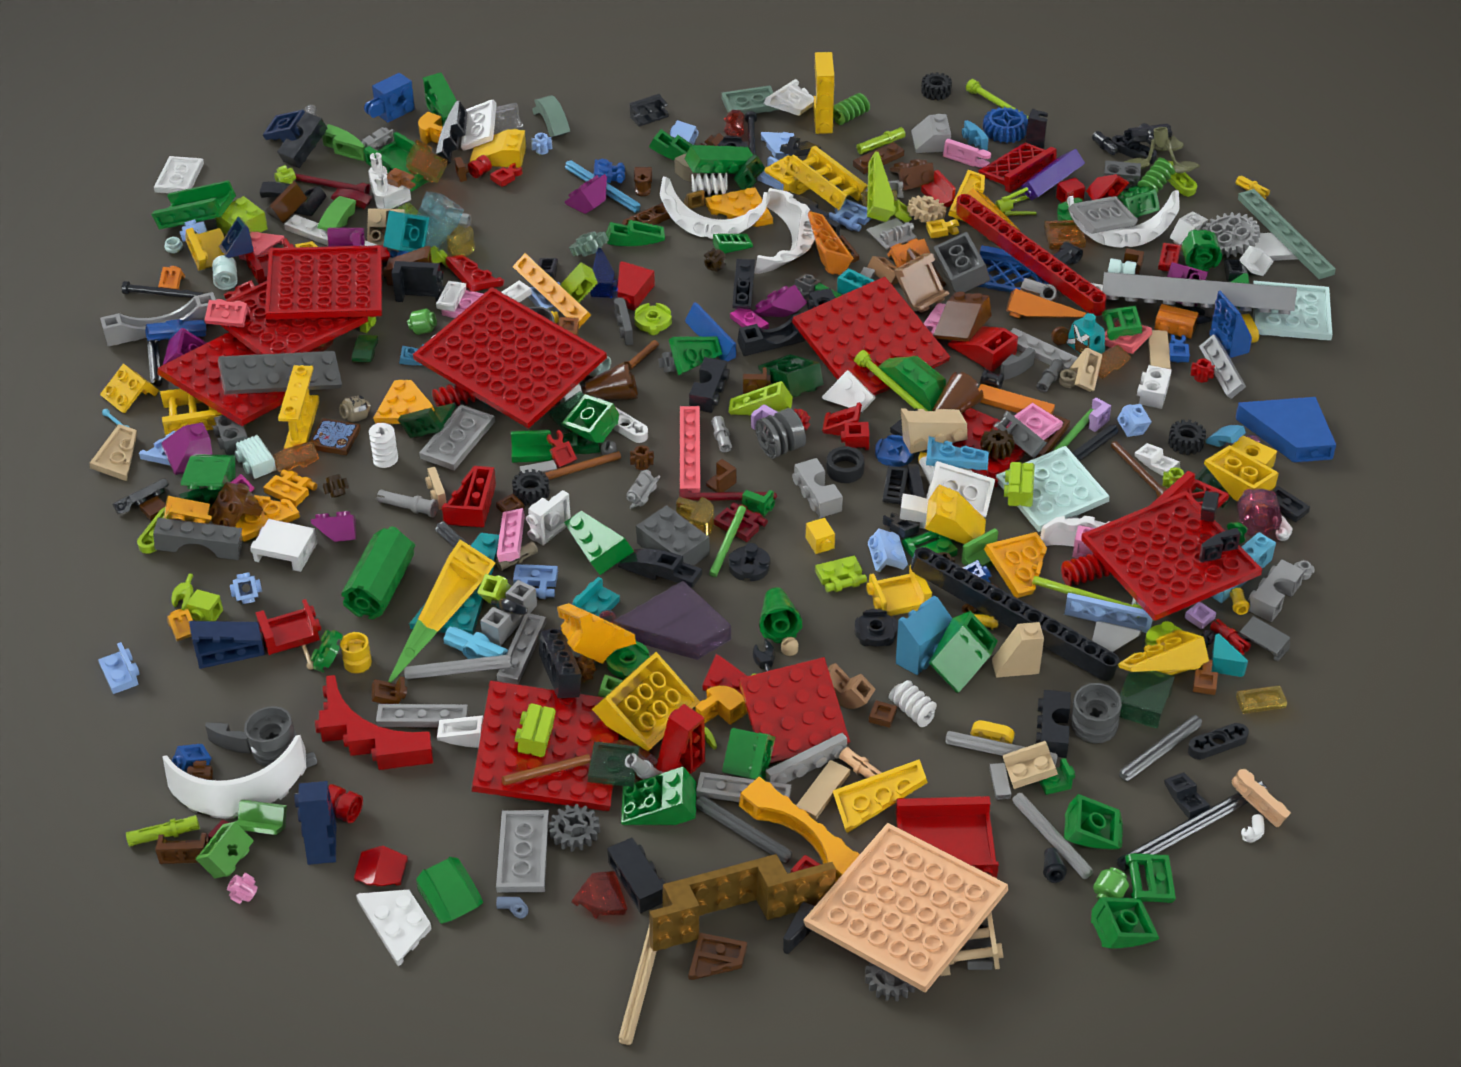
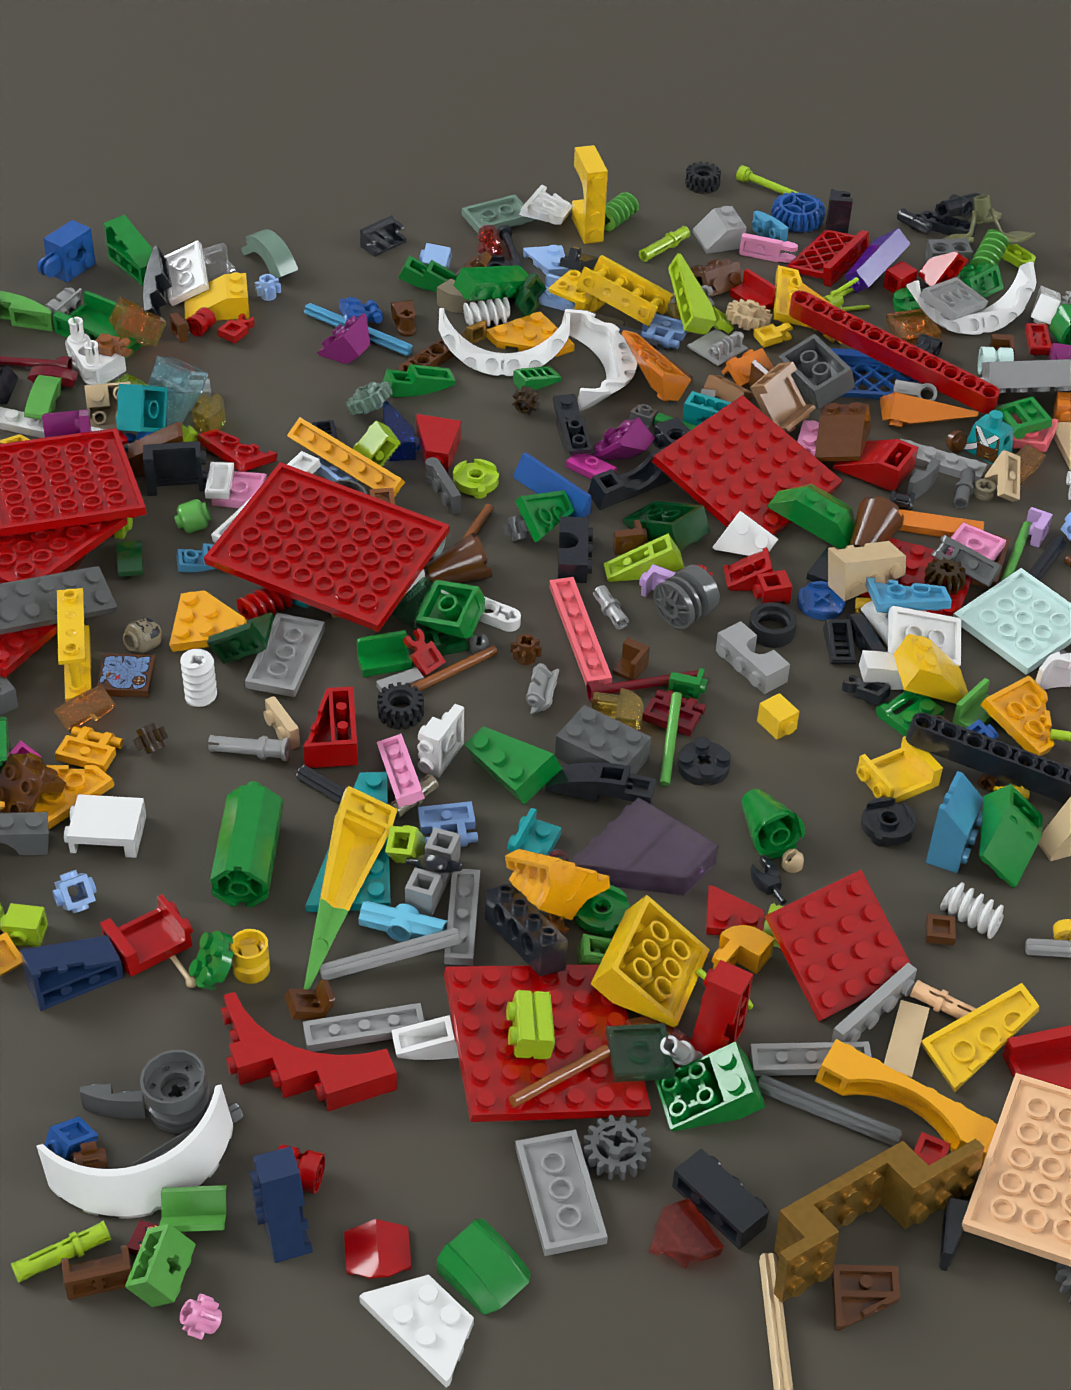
camera: 15 degrees left, 0 degrees up
(255, 457) = (31, 715): light aqua brick -> none
(337, 528) = (172, 793): magenta slope -> none
(430, 127) = (126, 283): light orange brick -> none
(509, 503) = (380, 730): reddish brown tile -> none
(514, 904) = (574, 1269): sand blue arm -> none
(748, 754) = (802, 1010): green bracket -> none
(840, 574) = (816, 754): lime plate -> none
(850, 691) = (899, 904): medium nougat brick -> none
(863, 359) = (754, 497): lime piece -> none
(886, 550) = (862, 723): light blue bracket -> none
(887, 154) = (658, 269): reddish brown plate -> none
(1020, 484) = (991, 620): lime brick -> none

